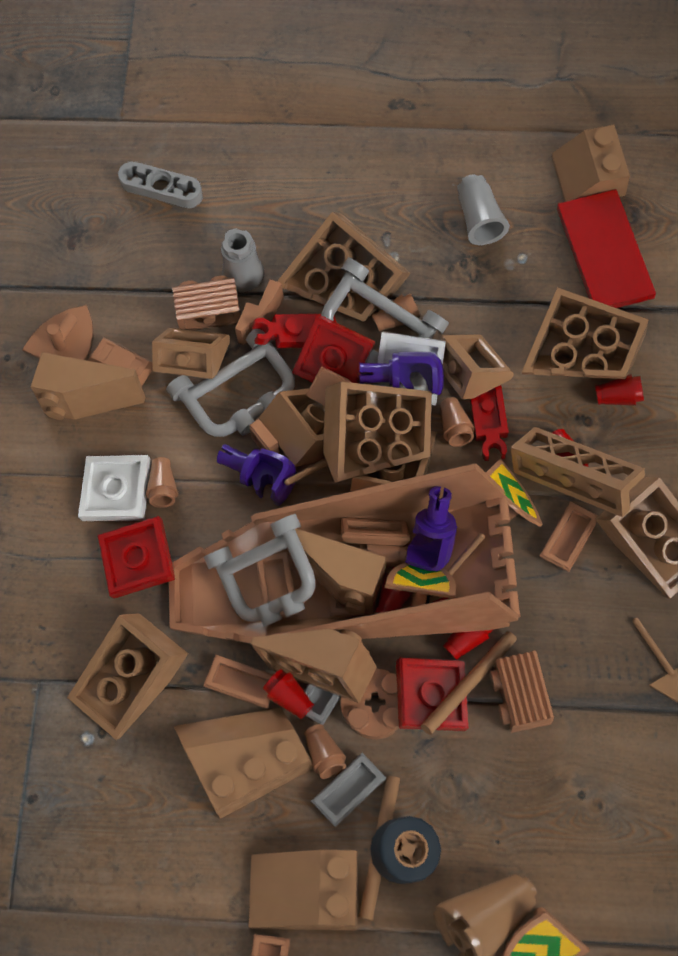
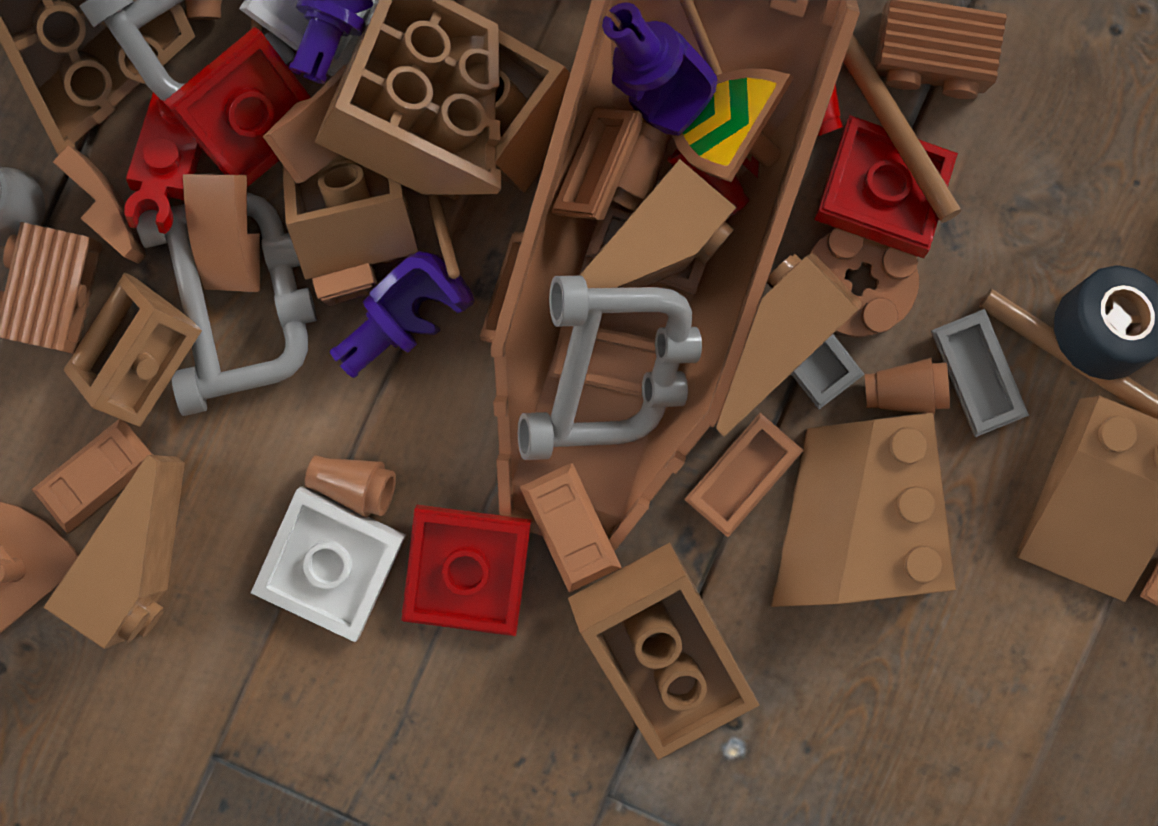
camera: 75 degrees left, 20 degrees up
(178, 600) = (570, 527): none -> nougat tile
(271, 364) = (218, 234): none -> nougat slope
(288, 694) = (803, 408): red cone -> none

